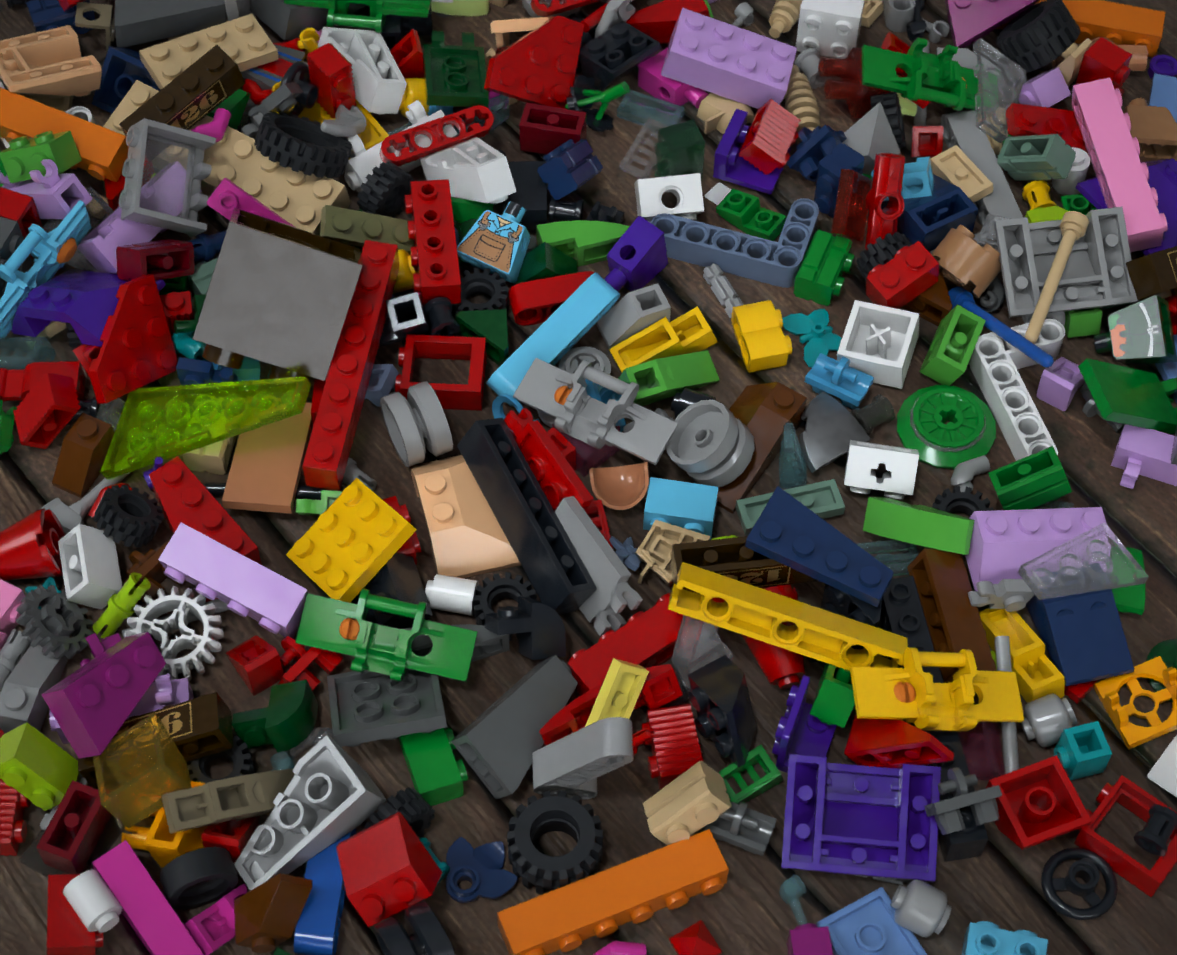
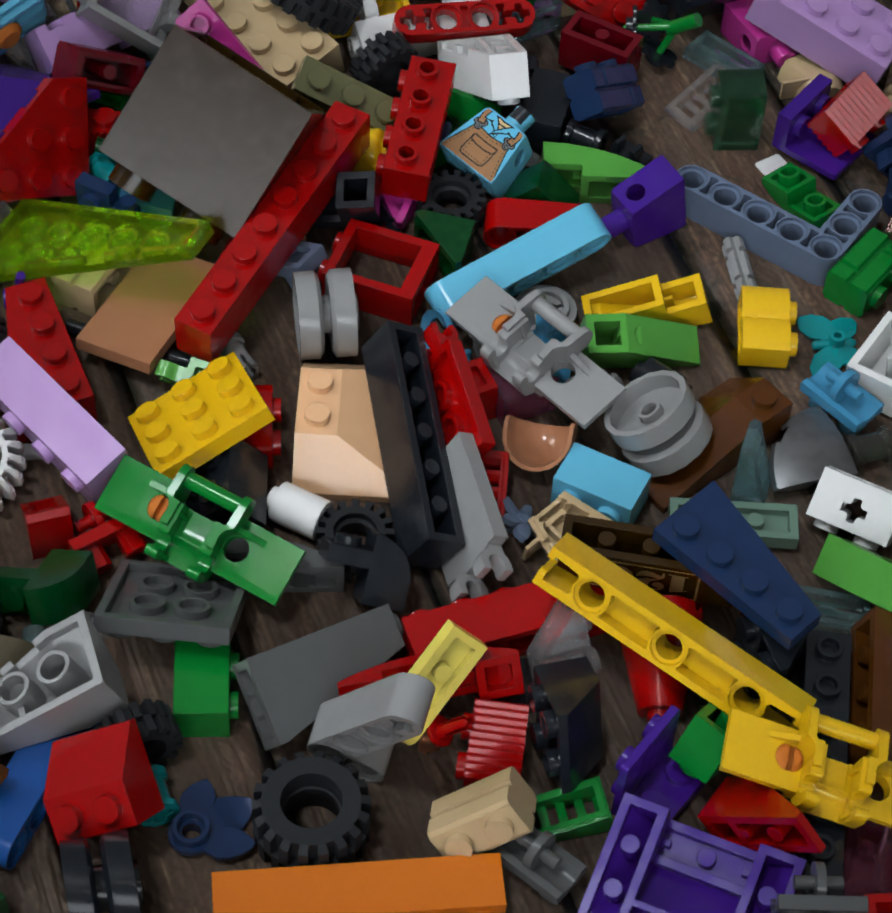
camera: 15 degrees right, 5 degrees down
(441, 318) = (397, 207): black bush -> none
(634, 313) = (622, 262): light grey slope -> none
(685, 187) = (730, 142): white brick -> none

